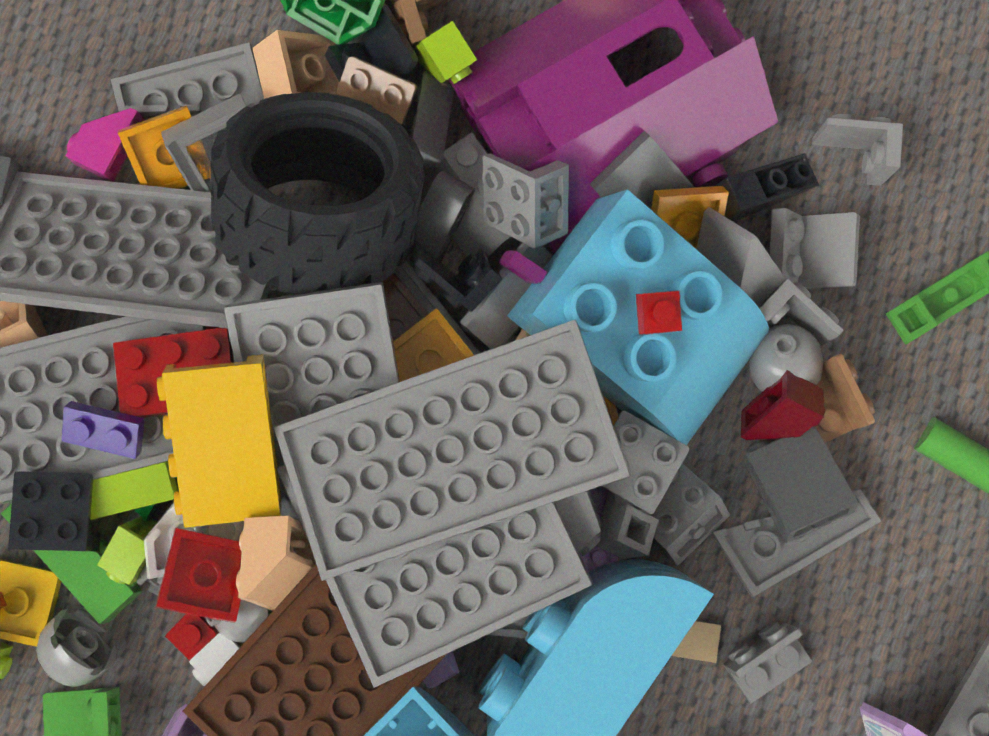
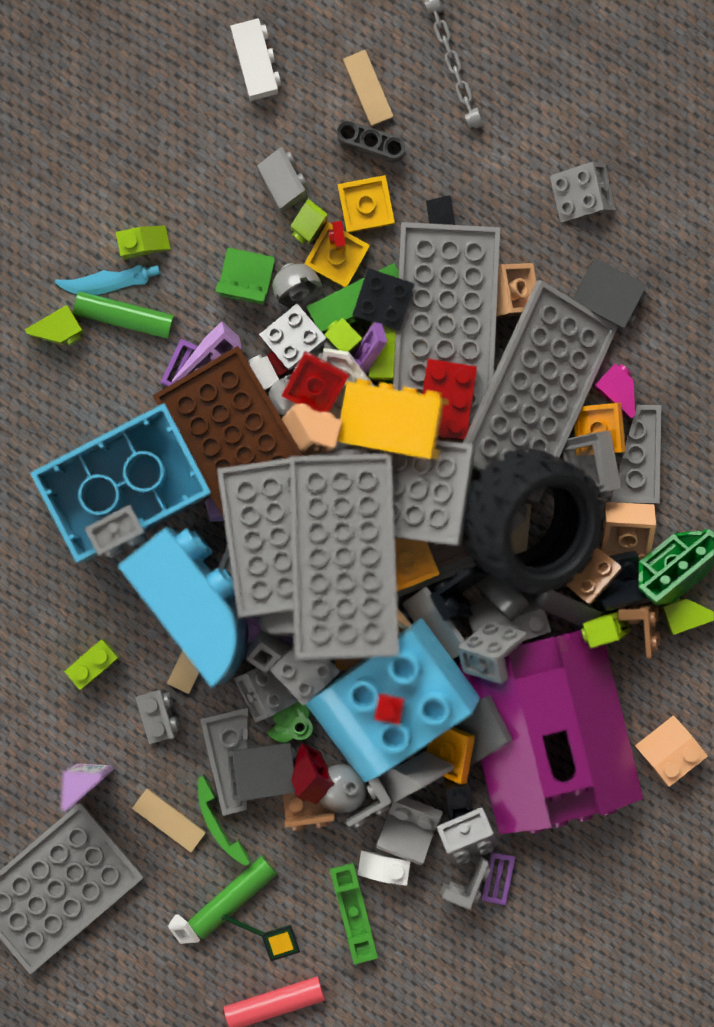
camera: 105 degrees right, 5 degrees up
(102, 429) = (423, 345): piece -> none
(126, 508) = (370, 347): none -> medium lavender tile
(148, 635) = (292, 336): none -> bracket
(522, 267) = (448, 635): magenta tile -> none
(709, 176) = (477, 778): magenta tile -> none
(717, 468) = (287, 723): none -> bright green plate
(794, 164) = (467, 836): none -> light grey bracket
(806, 115) = (501, 857): none -> medium lavender tile
(878, 269) = (384, 867): none -> white slope
(911, 598) = (169, 820): none -> tan tile
(923, 491) = (234, 849): none -> bright green slope

